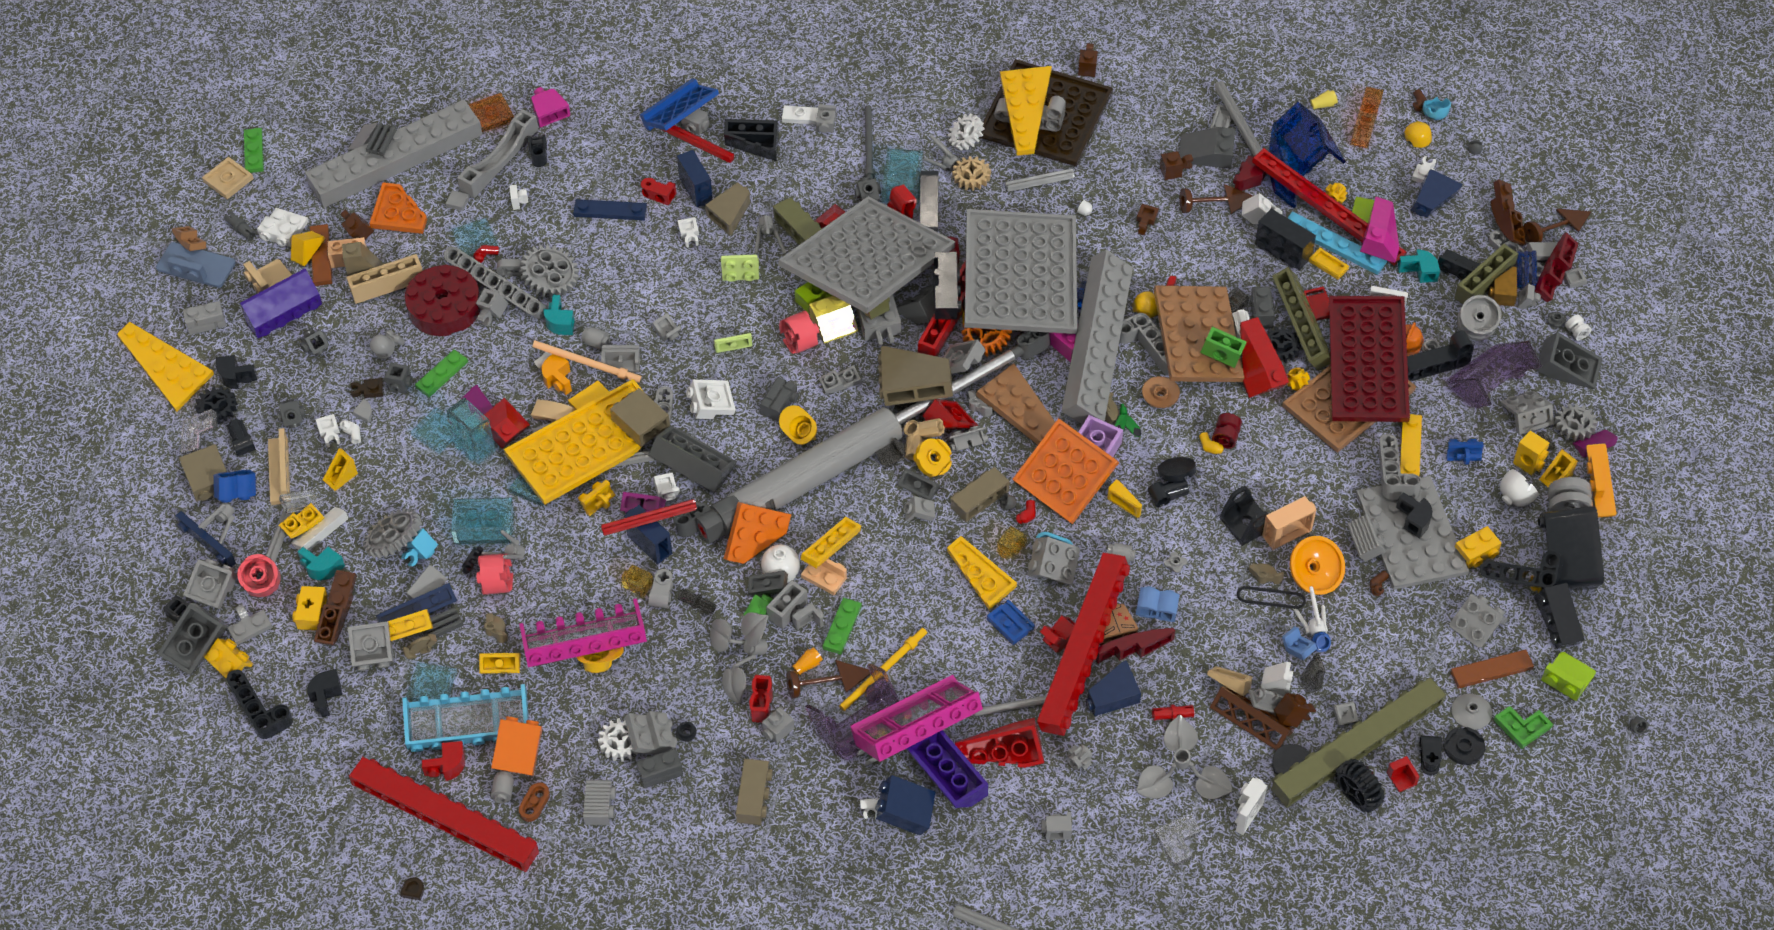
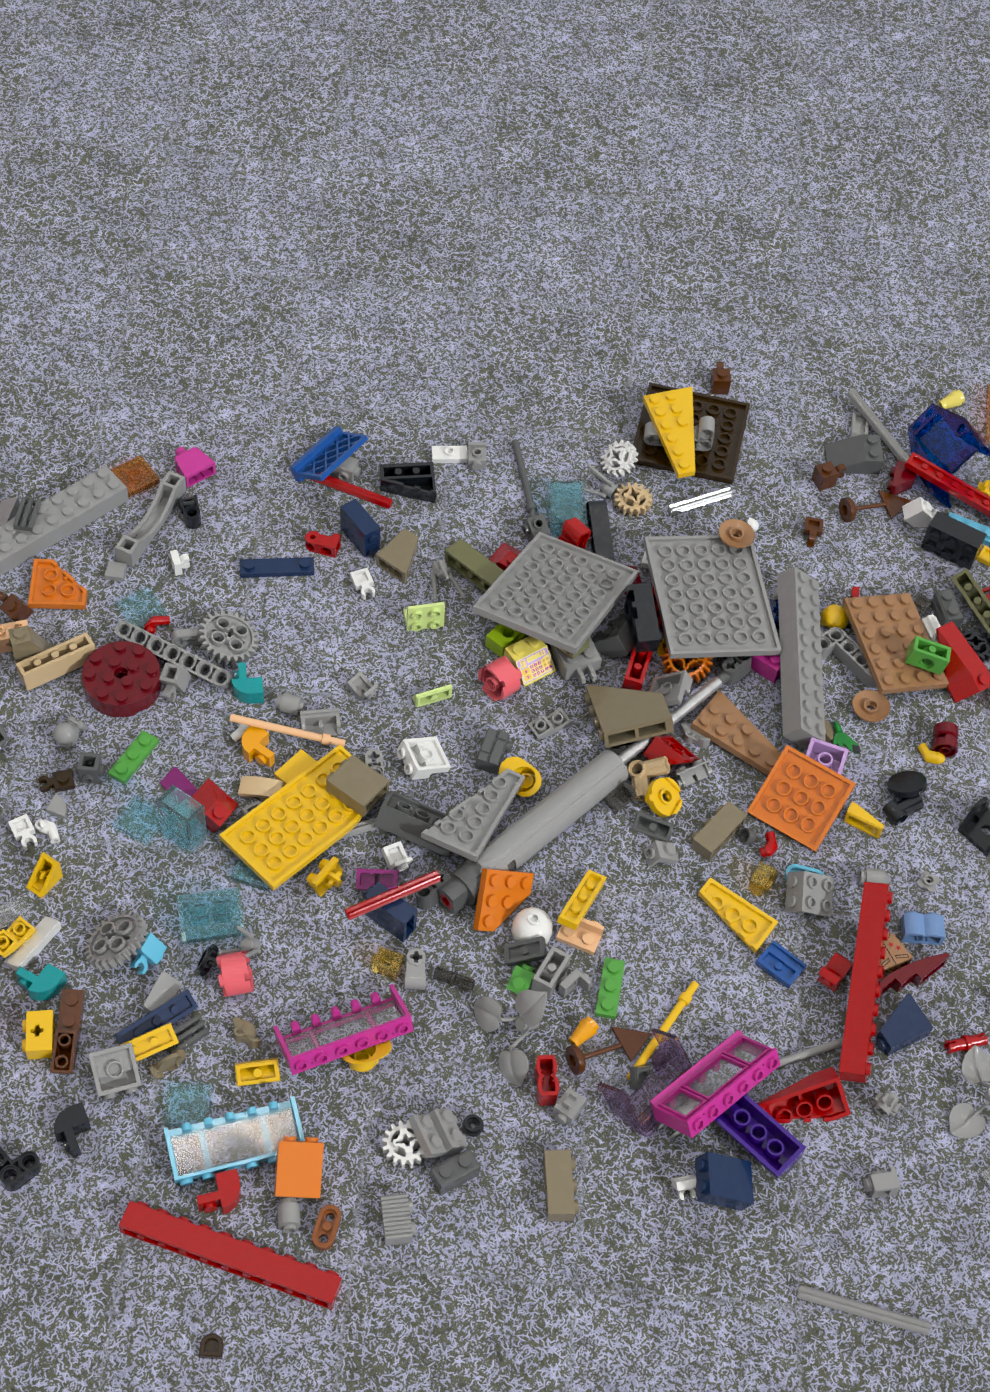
camera: 15 degrees left, 0 degrees up
(742, 459) = (476, 818): none -> light grey wing
(849, 706) = (638, 1075): none -> dark grey tile
(1058, 213) = (736, 533): none -> medium nougat dish

